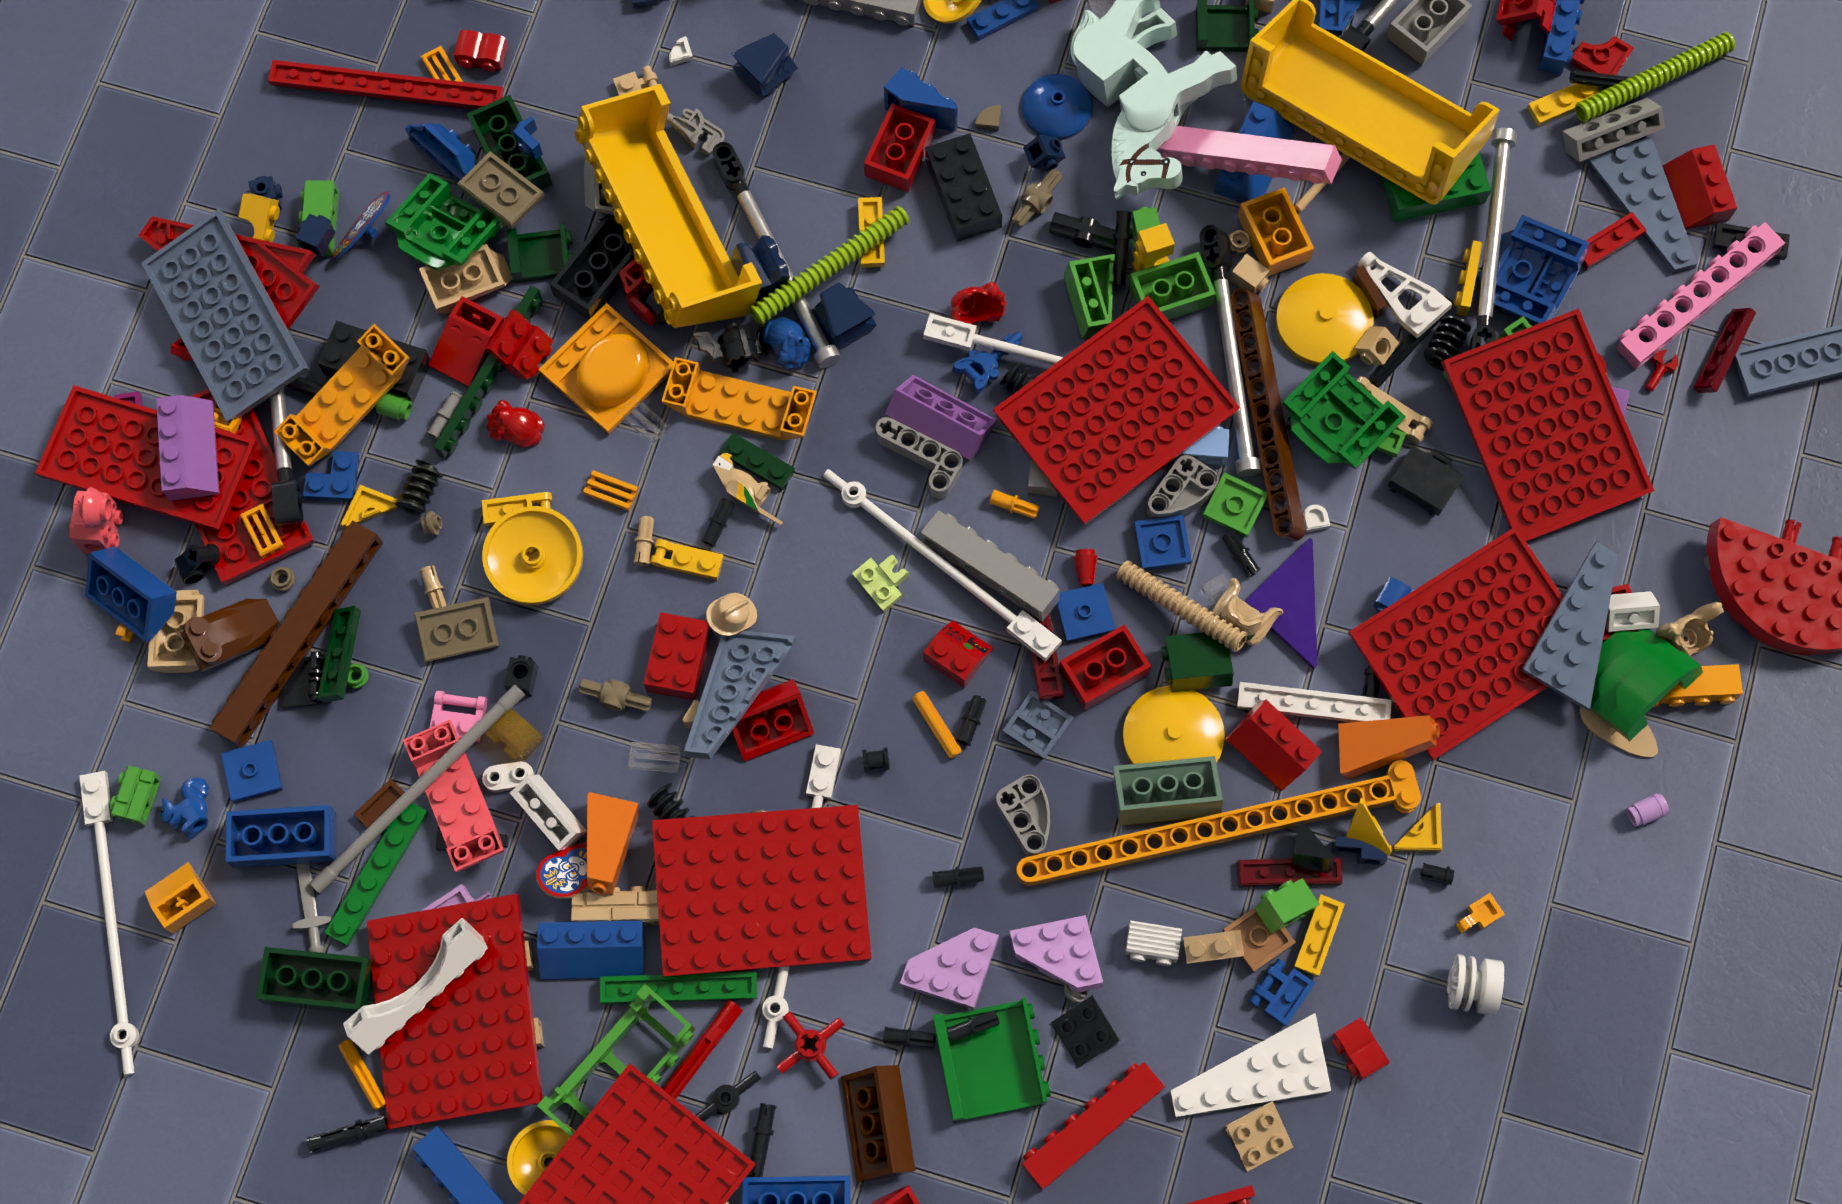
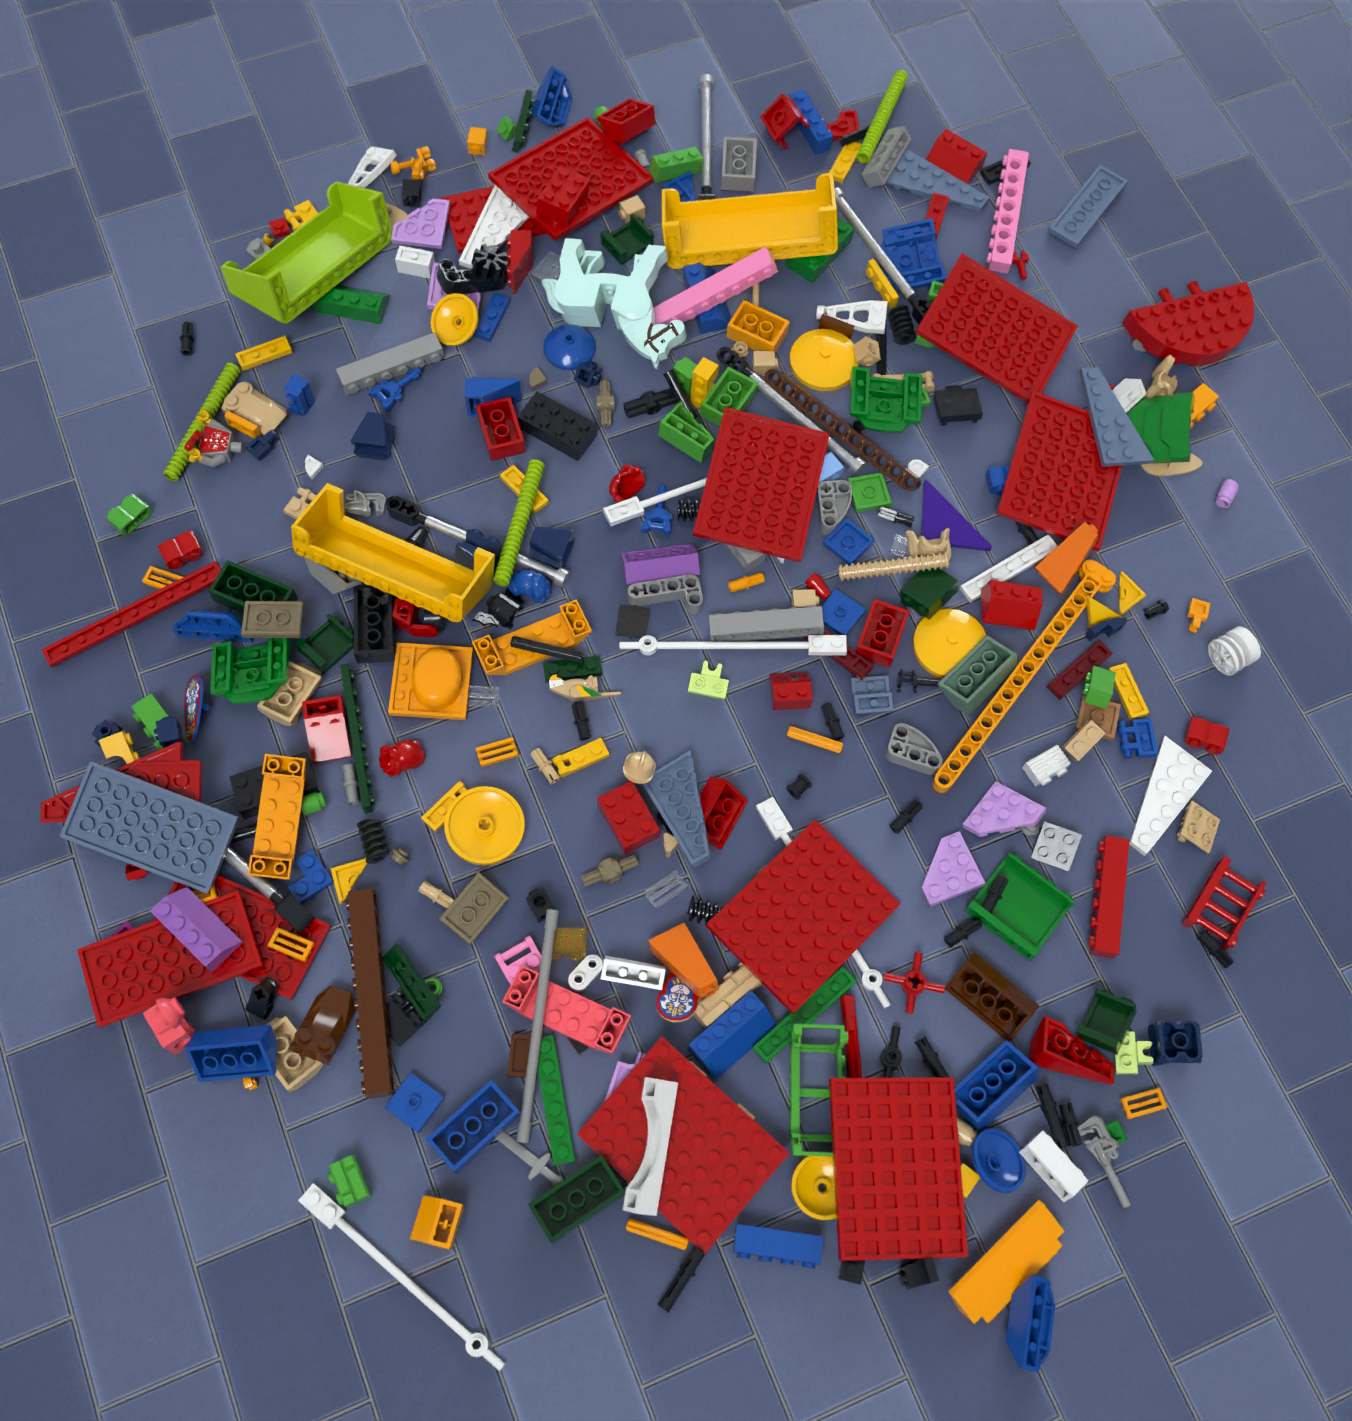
camera: 45 degrees left, 5 degrees down
(191, 811) = (397, 1160): blue animal -> none
(279, 573) = (325, 961): dark tan plate -> none
(520, 345) = (365, 706): red plate -> none
(525, 141) = (264, 578): blue bracket -> none
(718, 206) = (417, 537): none -> black cone
(744, 422) = (547, 649): none -> black axle
(830, 24) = (393, 389): none -> blue piece
(861, 457) = (632, 621): none -> clear smoke piece
(1056, 570) = (804, 598): none -> tan brick
(1097, 745) = (915, 681): none -> black piece
(1310, 852) = (1083, 648): black slope -> none
(1724, 350) = (1044, 231): dark red tile -> none

